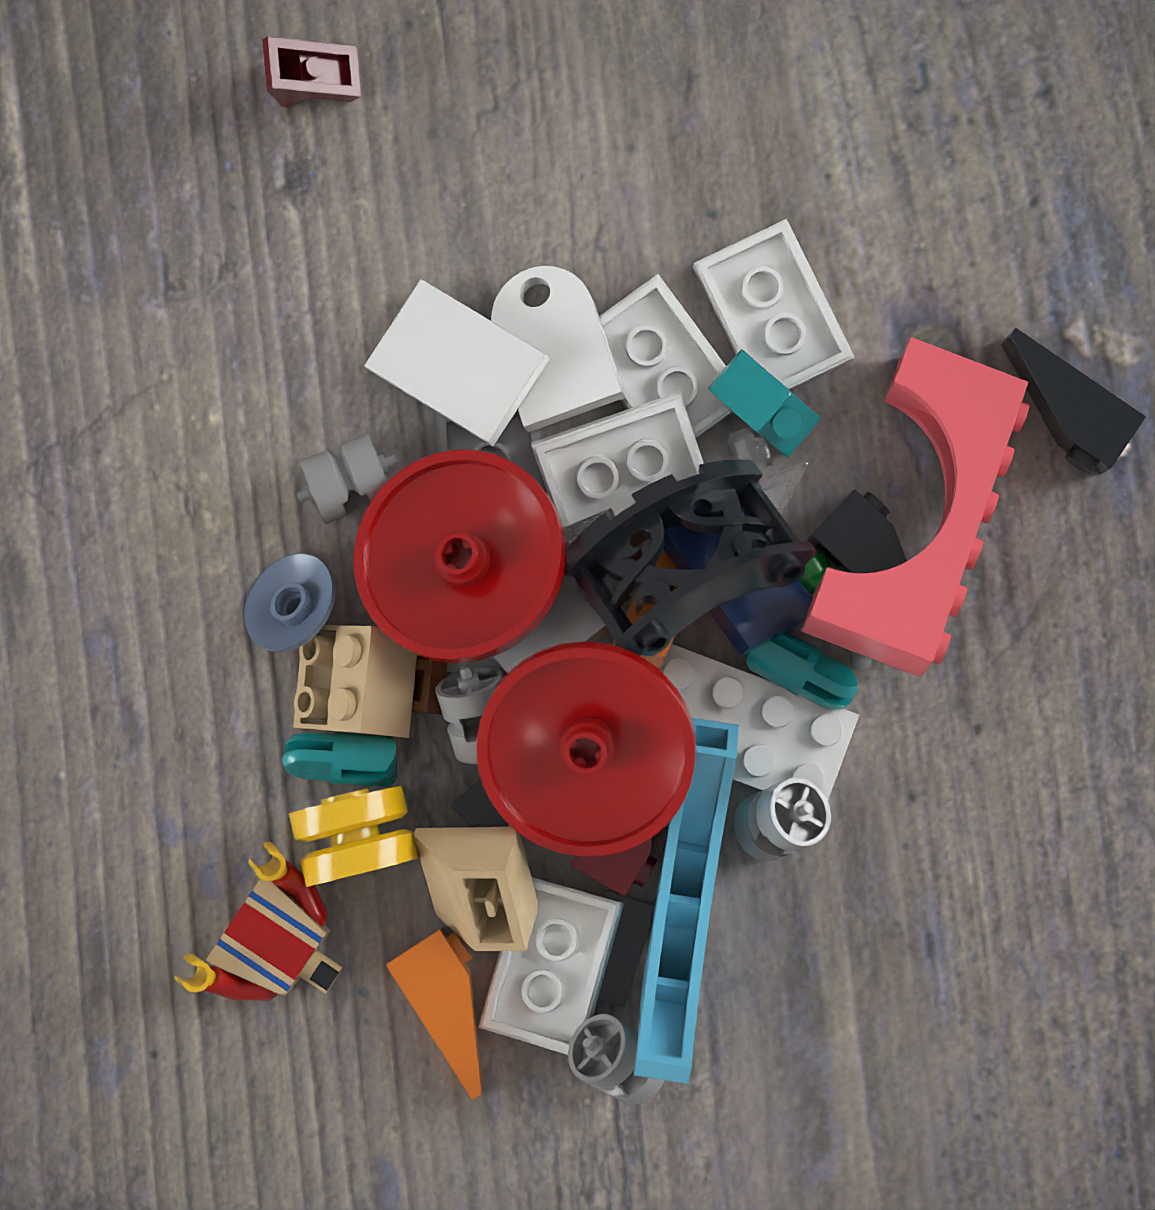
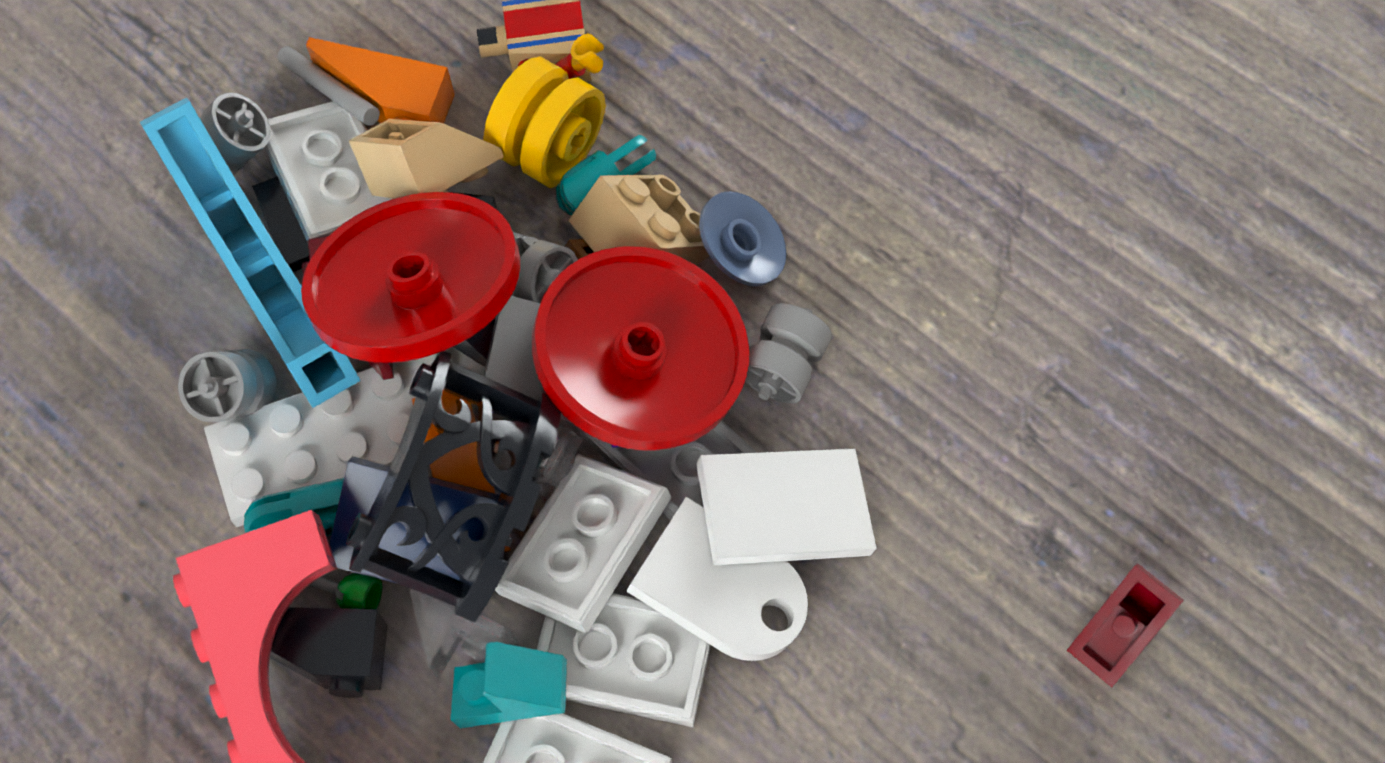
camera: 145 degrees right, 20 degrees down
(490, 1049) = (328, 85): none -> light grey bar

